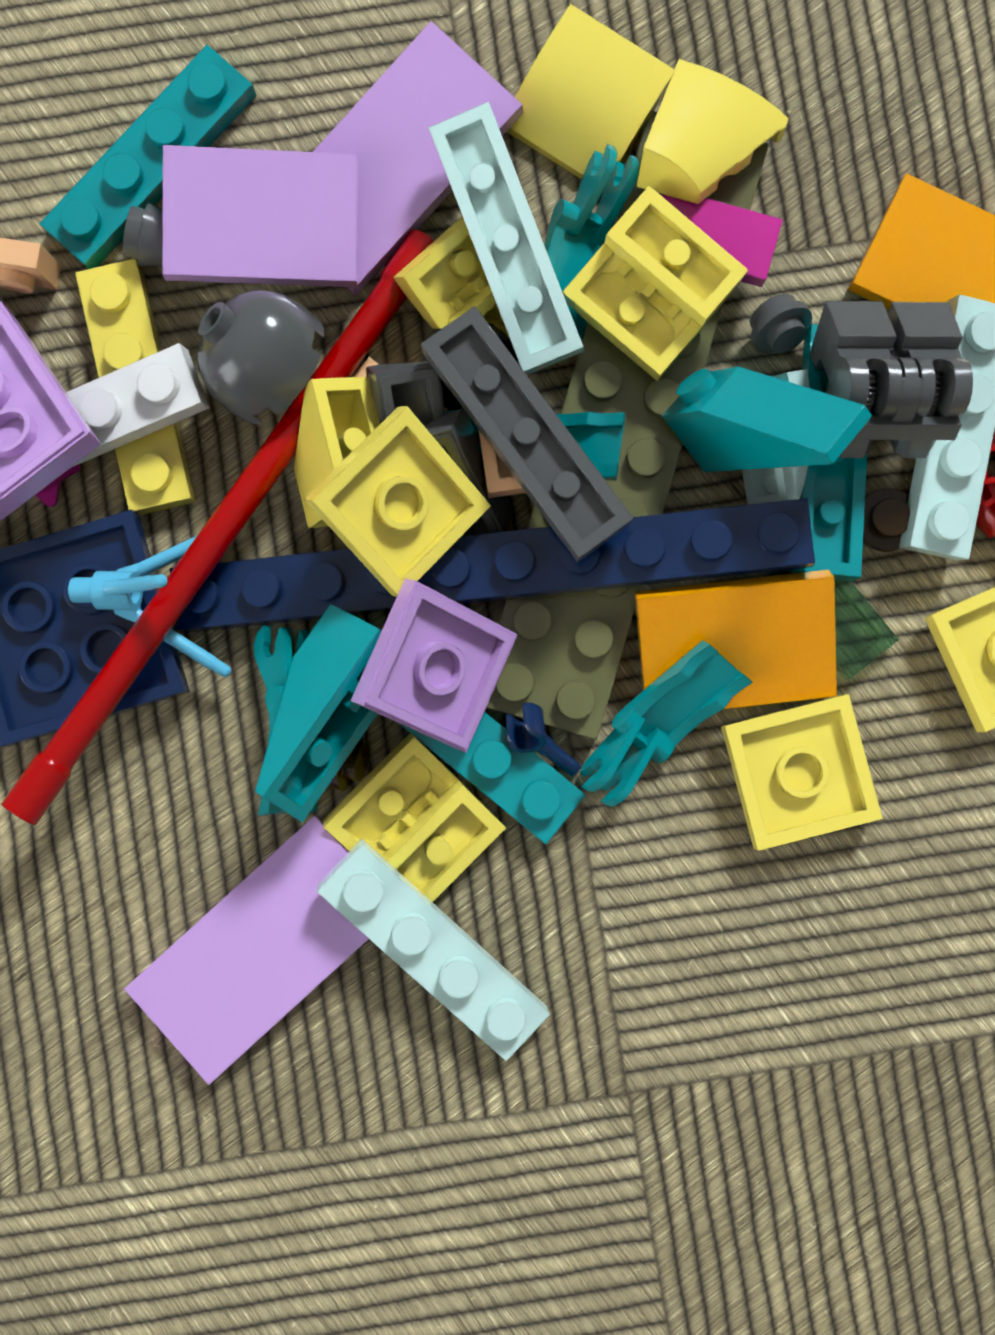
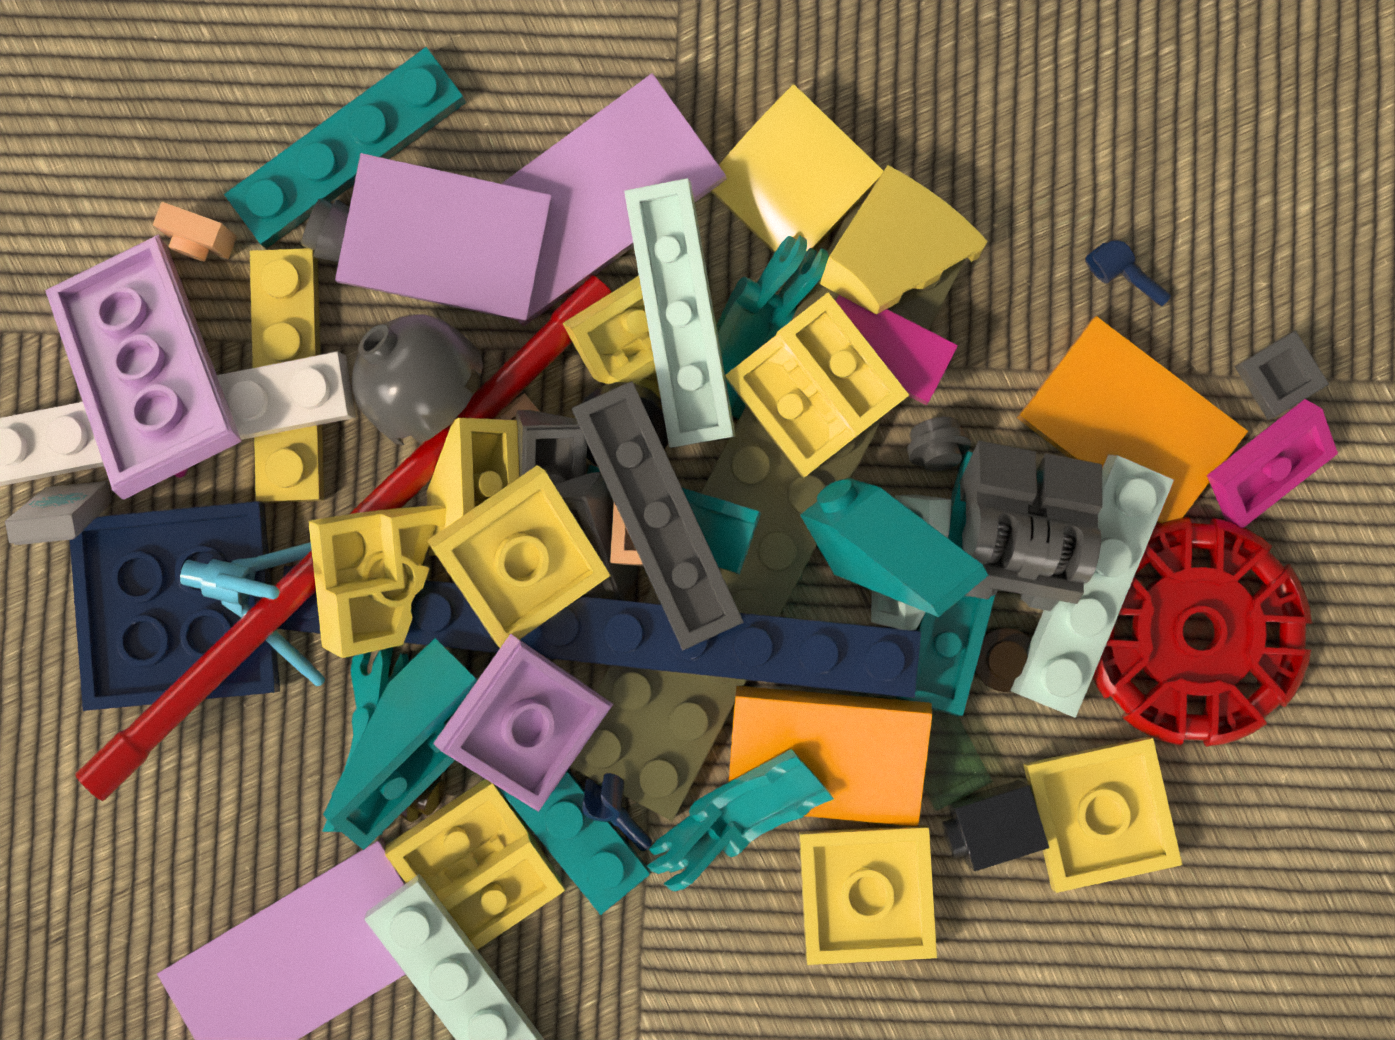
camera: 10 degrees right, 0 degrees up
(254, 554) = (369, 574): none -> light yellow slope
(912, 680) = (995, 826): none -> black brick
(914, 116) = (1117, 257): none -> dark blue hand

